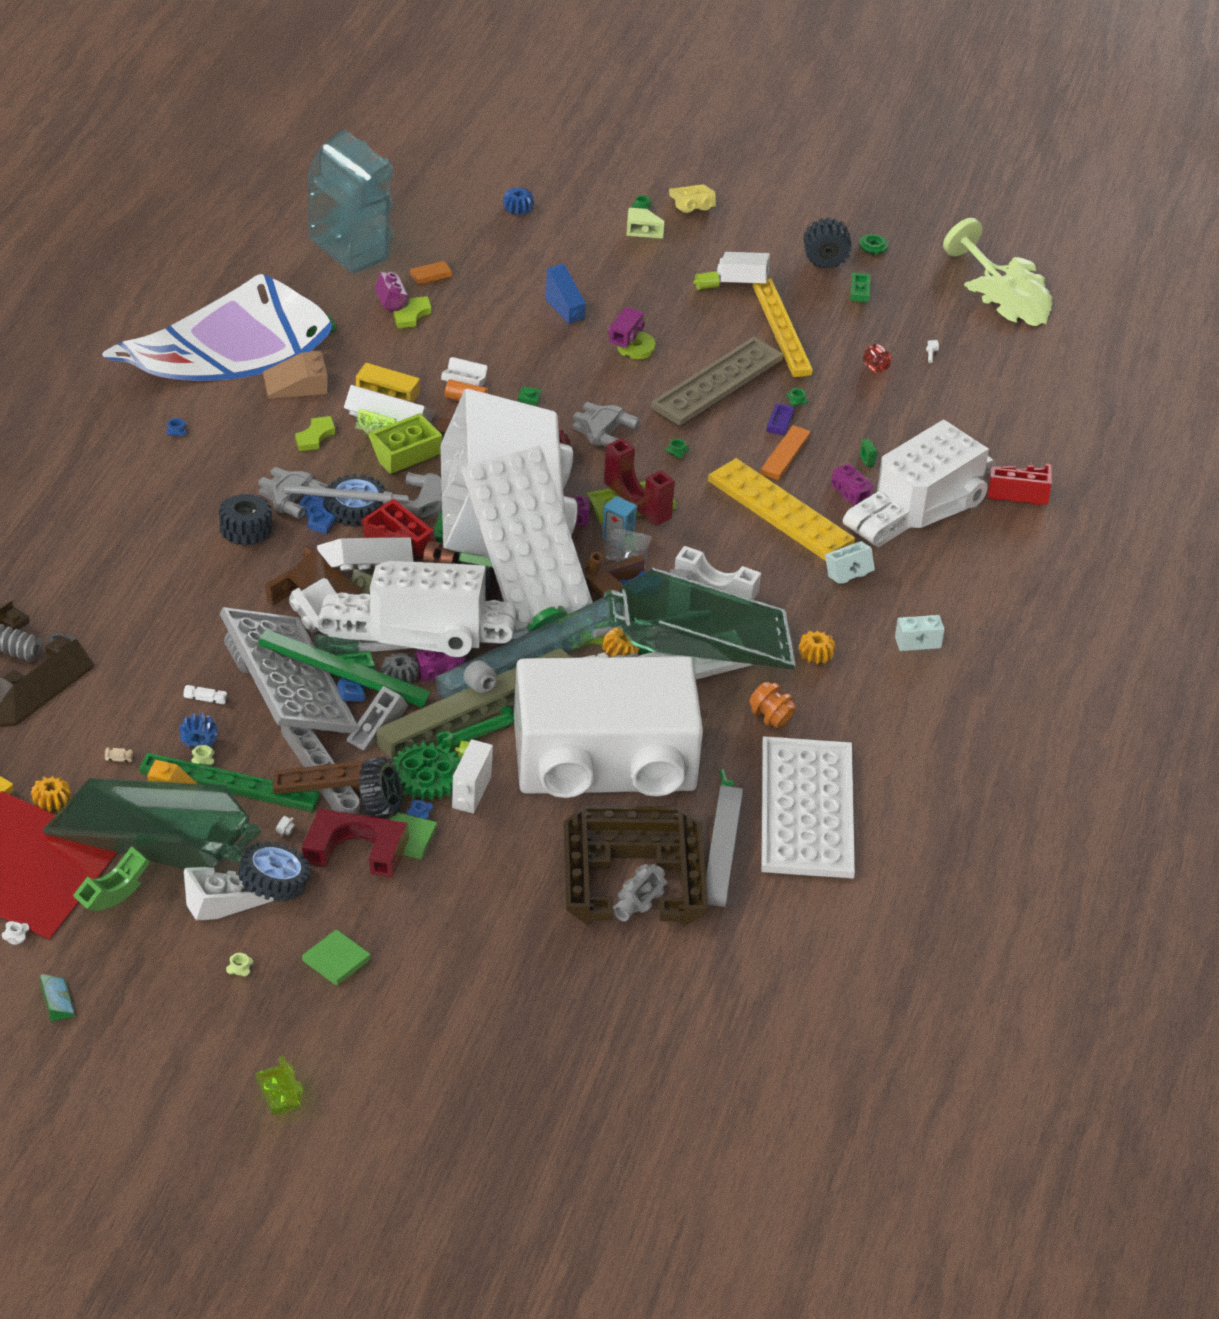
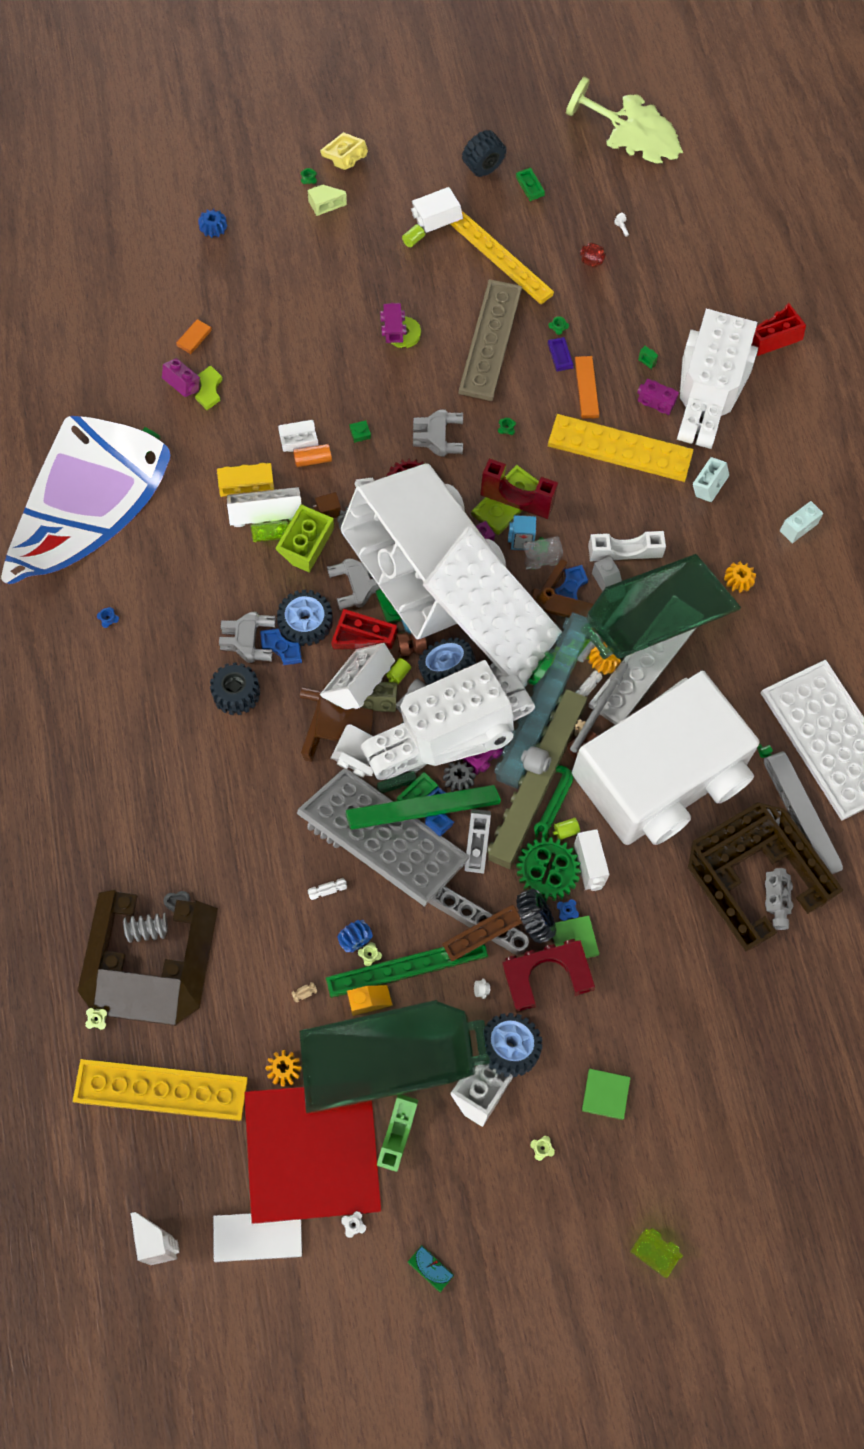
camera: 30 degrees left, 25 degrees up
(297, 376) = (167, 509): medium nougat slope -> none
(317, 431) = (222, 554): lime tile -> none
(350, 202) = (99, 307): clear light blue brick -> none
(384, 497) = (333, 608): light grey bar -> none
(469, 558) = (449, 634): bright green tile -> none
(564, 294) = (320, 311): blue slope -> none
(772, 704) = (753, 656): orange piece -> none
(867, 242) = (513, 128): green gear -> none

